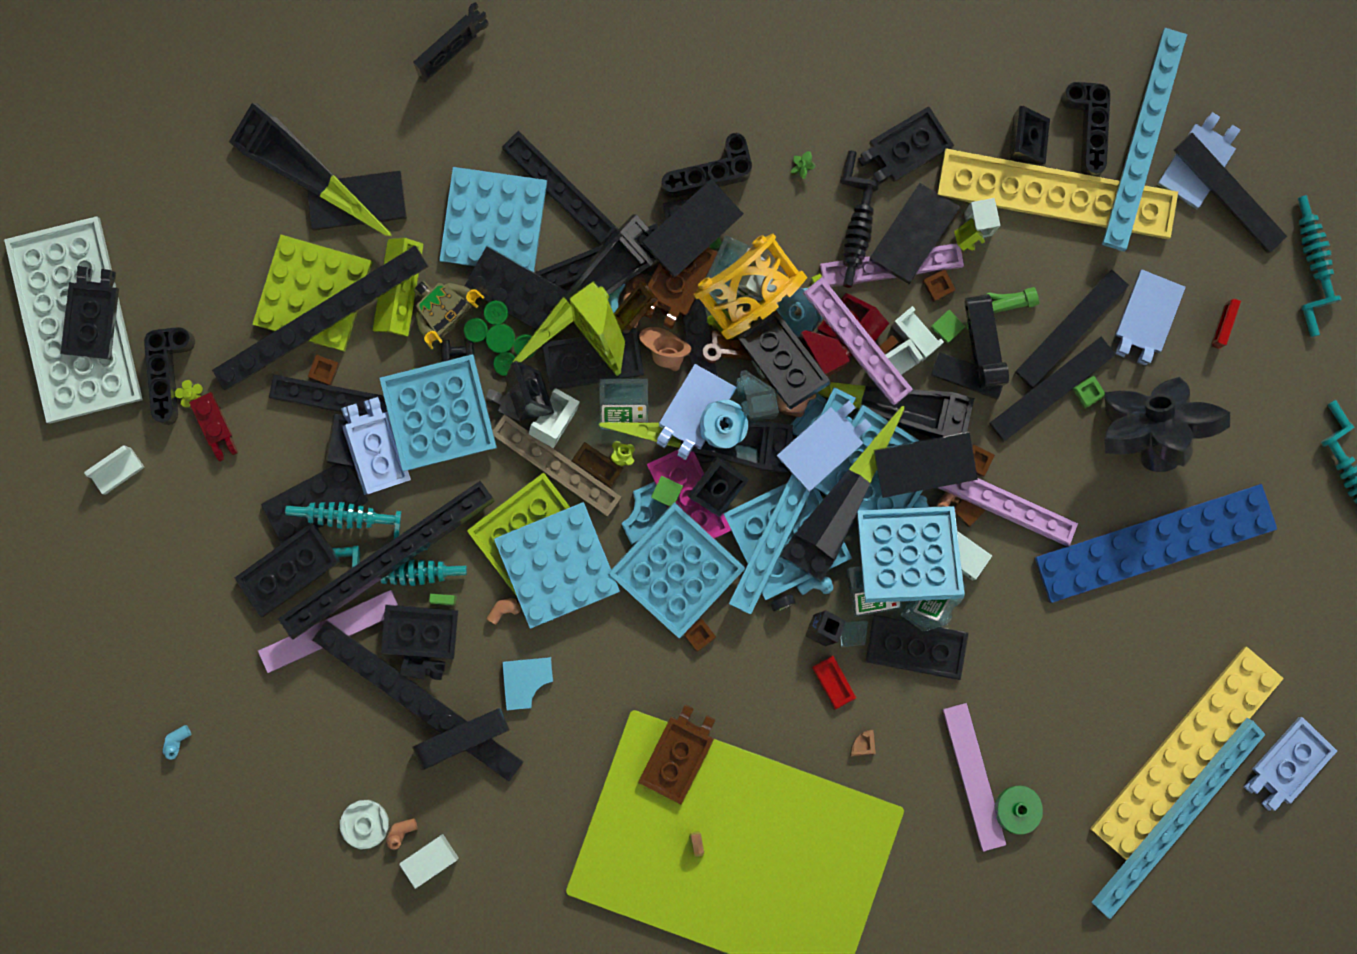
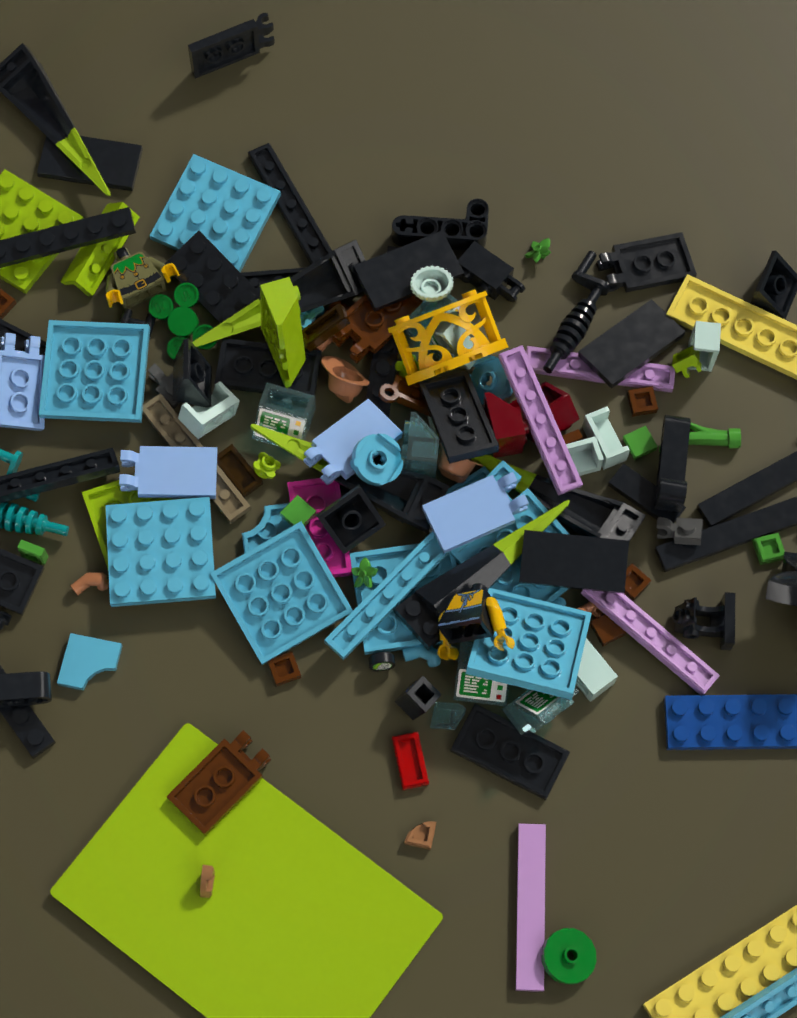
camera: 20 degrees right, 15 degrees down
(542, 488) = (171, 472): none -> light blue tile
(720, 238) = (431, 283): none -> light aqua hat
(744, 531) = (364, 573): none -> bright green plant
(764, 203) = (489, 273): none -> black brick
(855, 549) = (471, 617): none -> torso
(1012, 400) = (684, 531): none -> dark grey plate
(1066, 474) = (721, 620): none -> black tile

